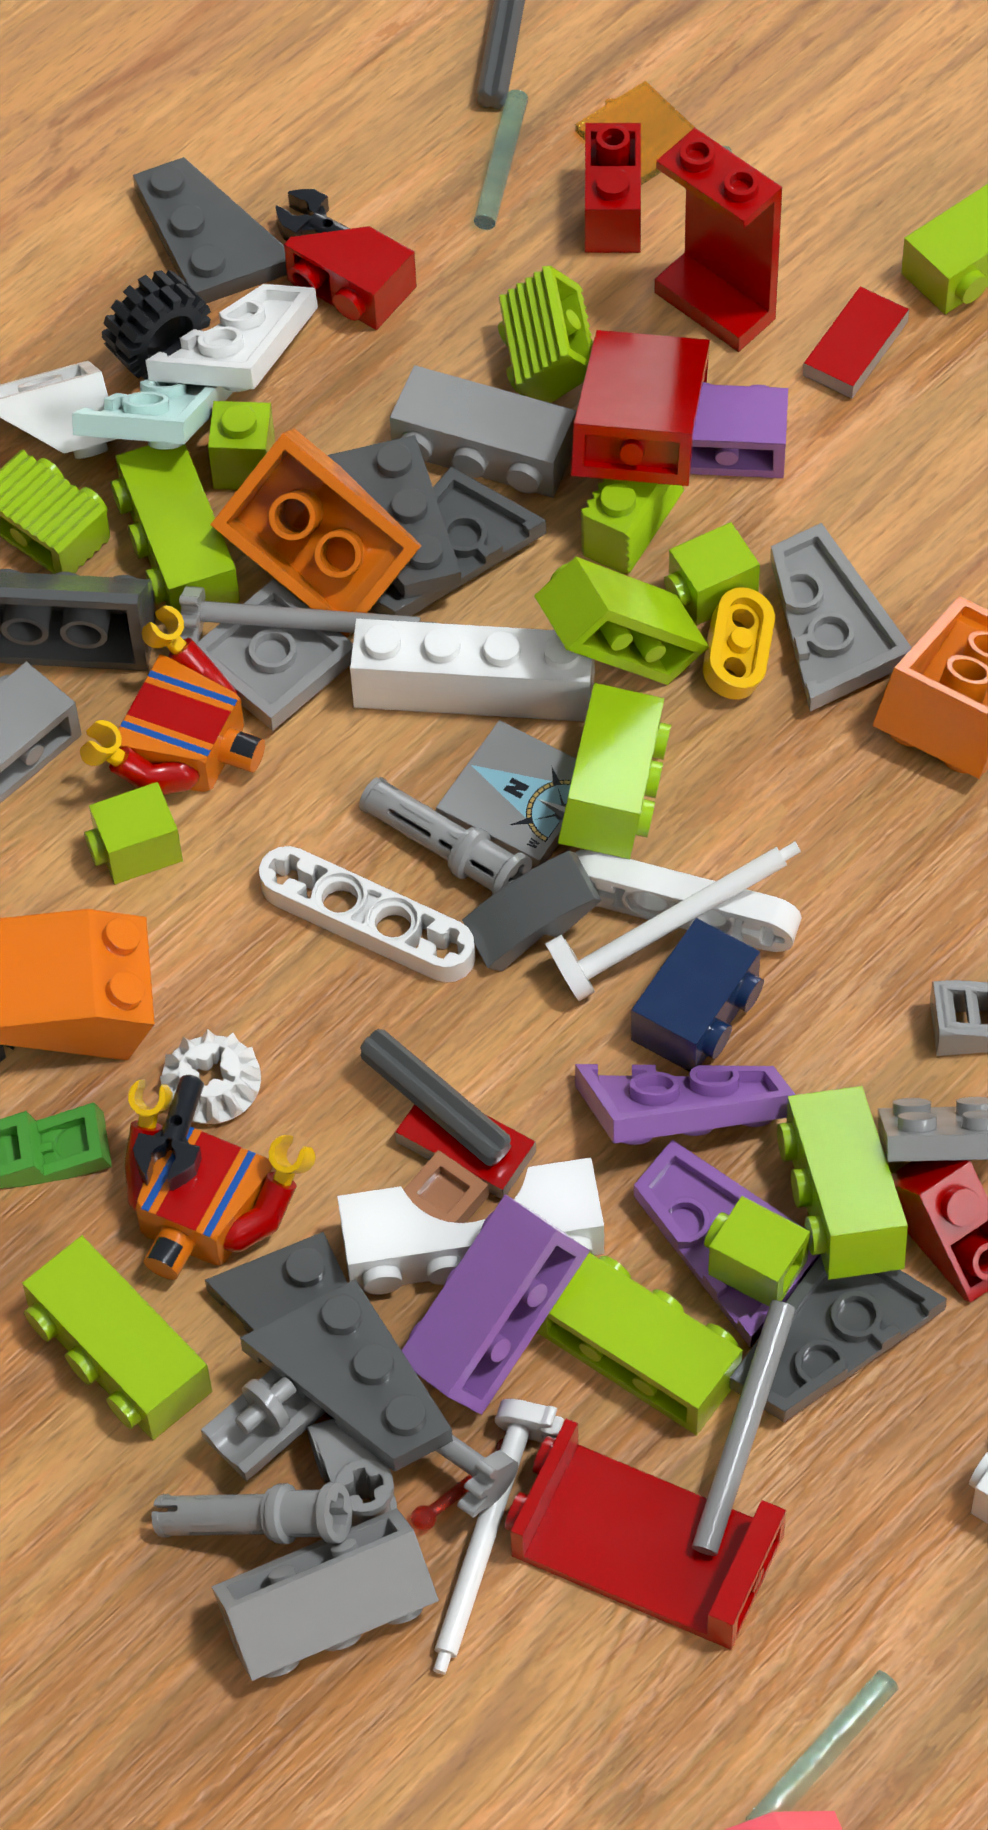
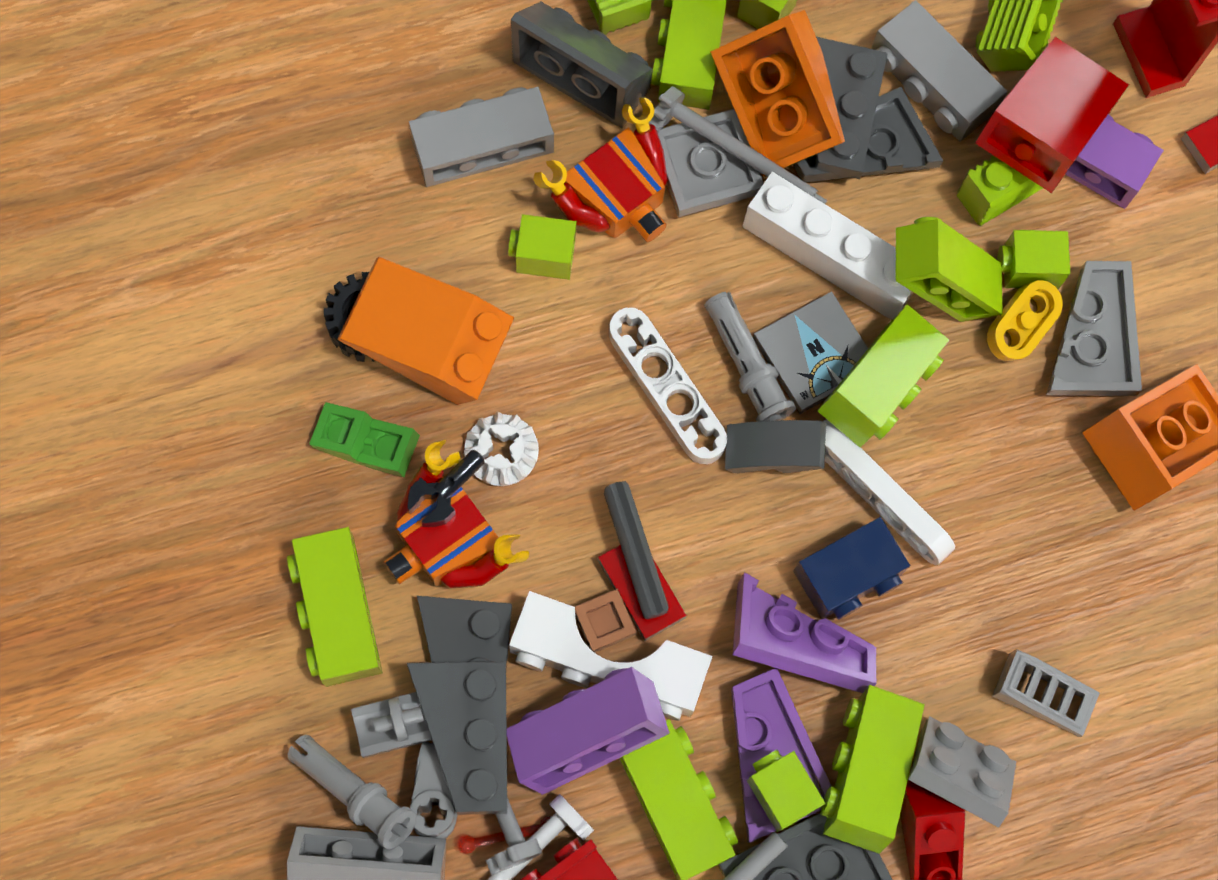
camera: 20 degrees right, 15 degrees up
(579, 972) = (781, 507): white piece -> none

